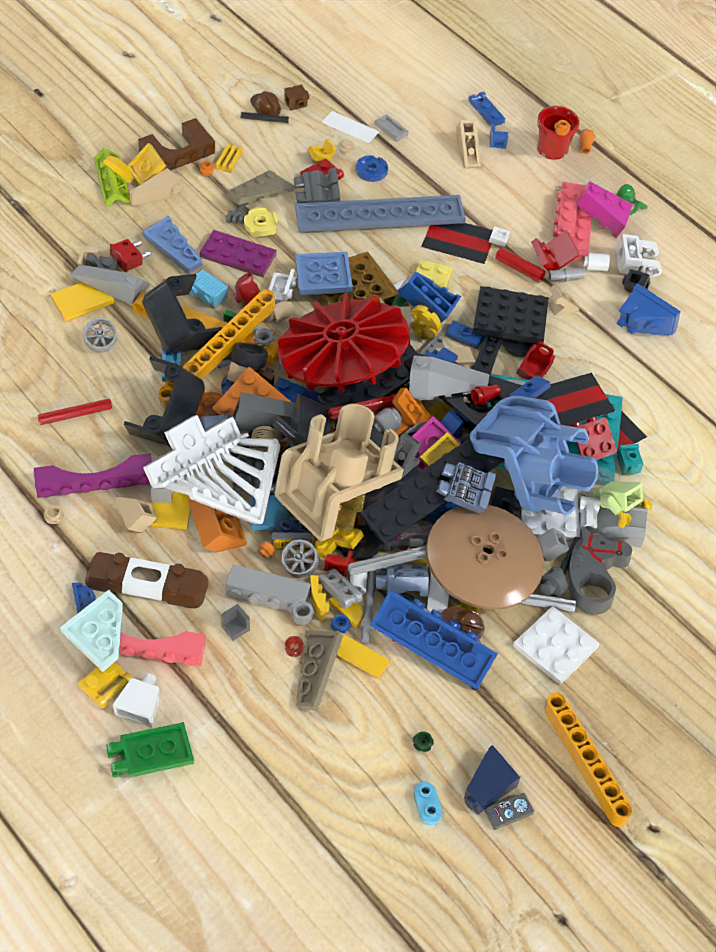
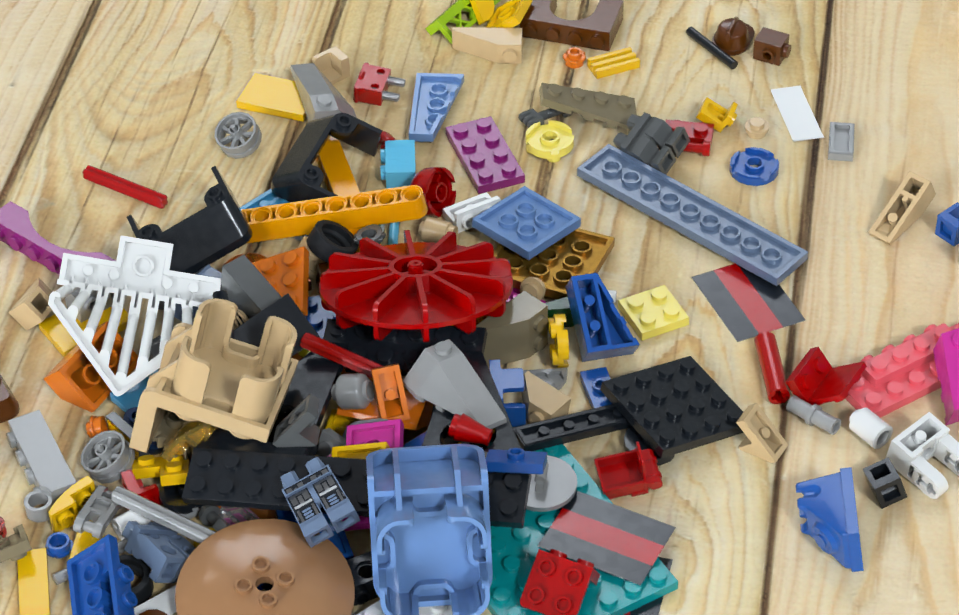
camera: 55 degrees right, 10 degrees down
(102, 262) = (341, 80): dark grey plate -> none
(499, 236) = (791, 324): white plate -> none

